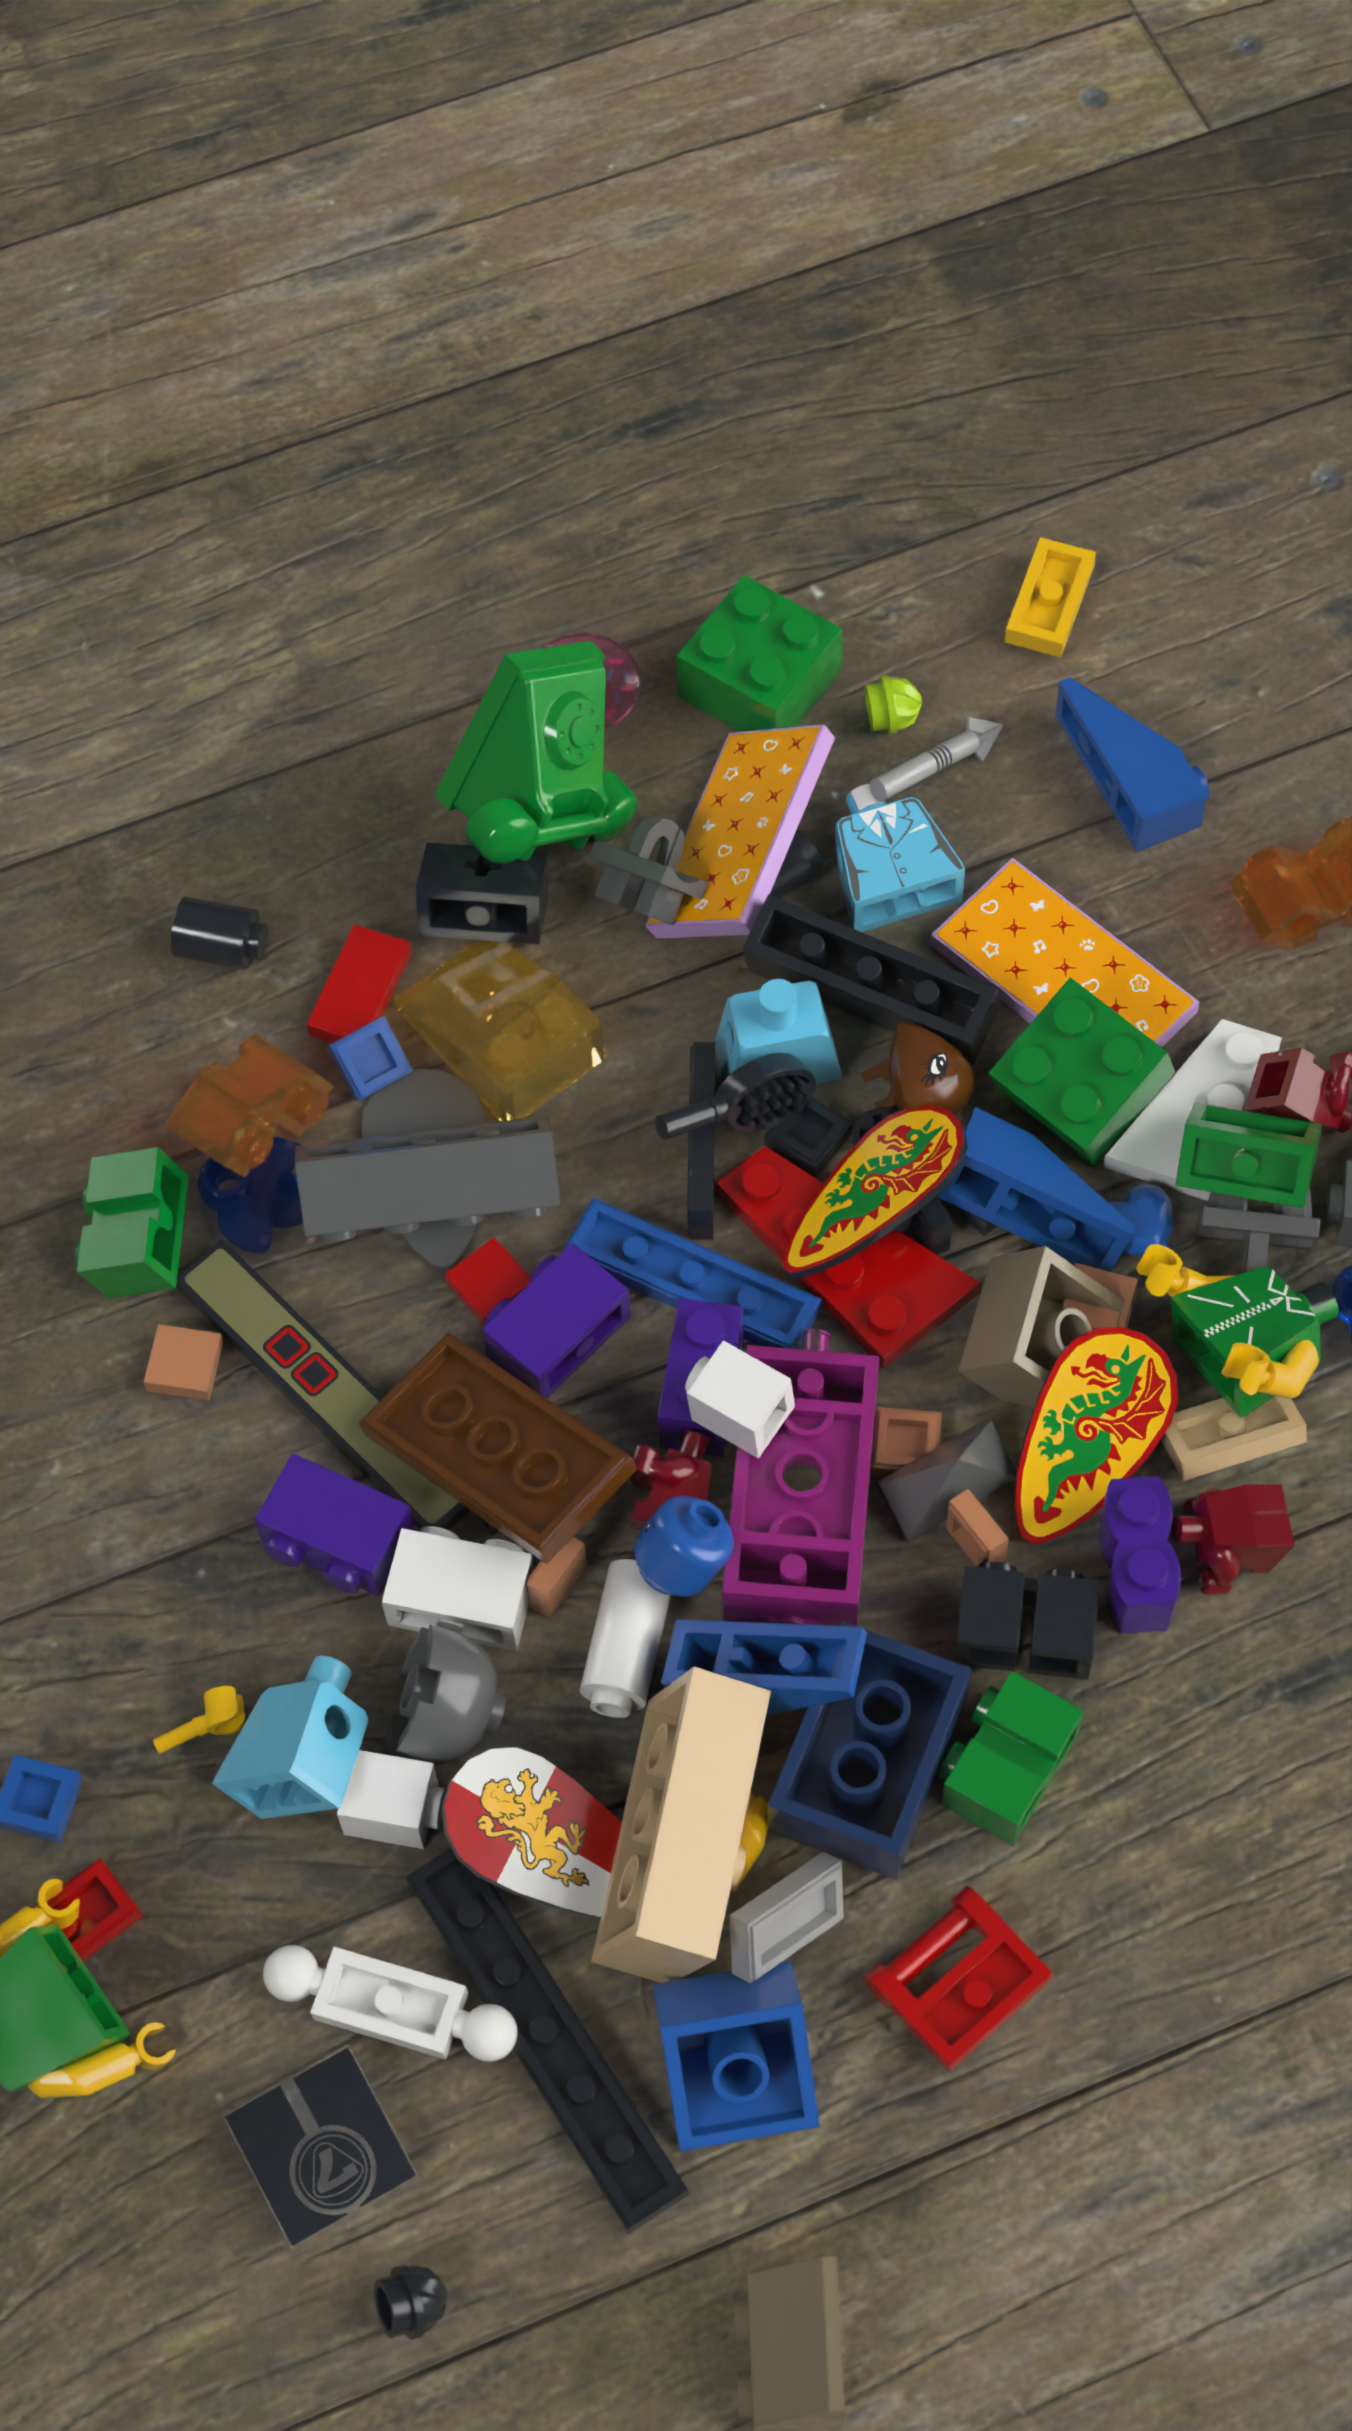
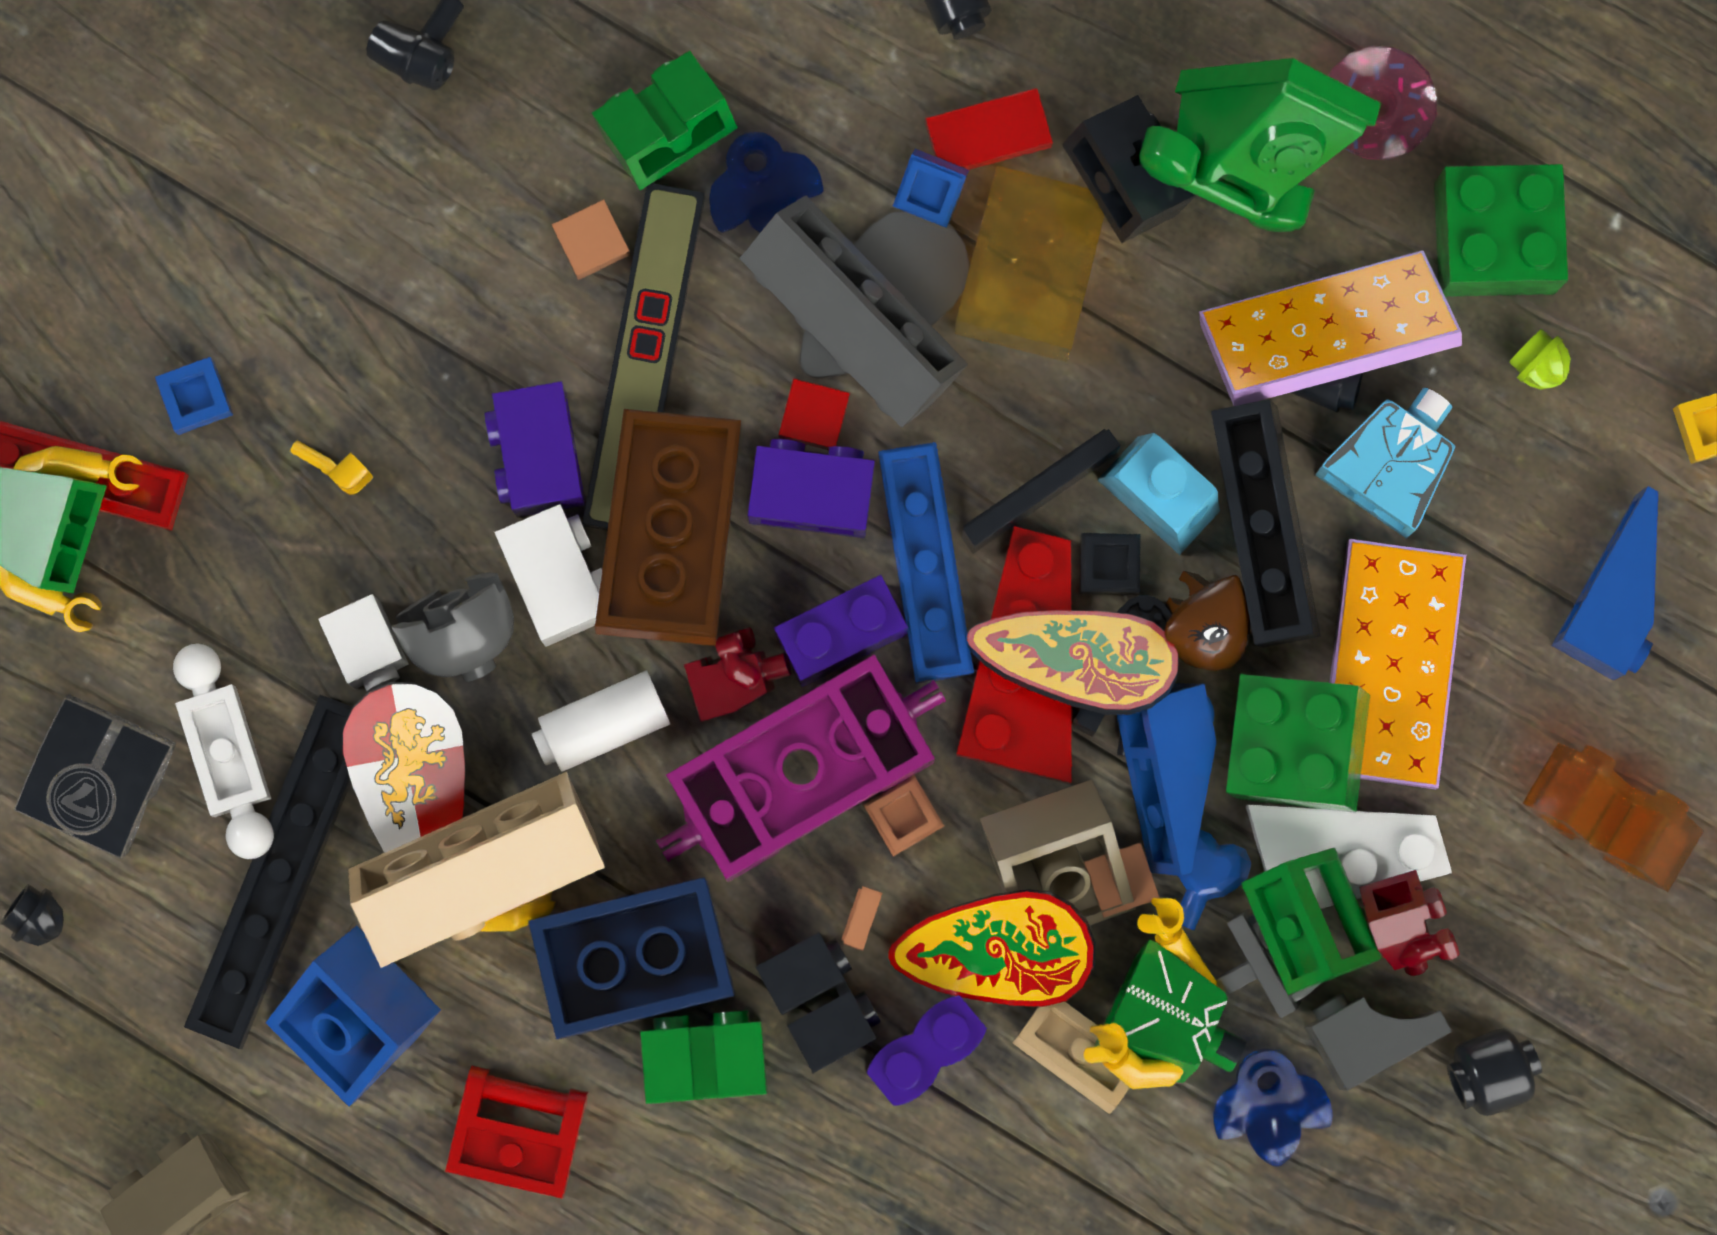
camera: 50 degrees right, 20 degrees up
(239, 1107) = (799, 131): clear orange brick -> none
(296, 1746) = (352, 552): medium azure torso -> none
(553, 1581) = (603, 643): nougat tile -> none
(662, 884) = (1239, 291): dark grey hips -> none
(683, 1546) = (680, 722): blue head -> none
(739, 1398) = (815, 682): white brick -> none
(749, 1099) = (1086, 505): black piece -> none
(786, 1917) = (465, 987): light grey tile -> none
(792, 1661) = (630, 843): blue slope -> none
(922, 1489) = (892, 867): dark grey slope -> none
(976, 739) = (1557, 448): light grey piece -> none
(1235, 1532) = (993, 1106): dark red piece -> none

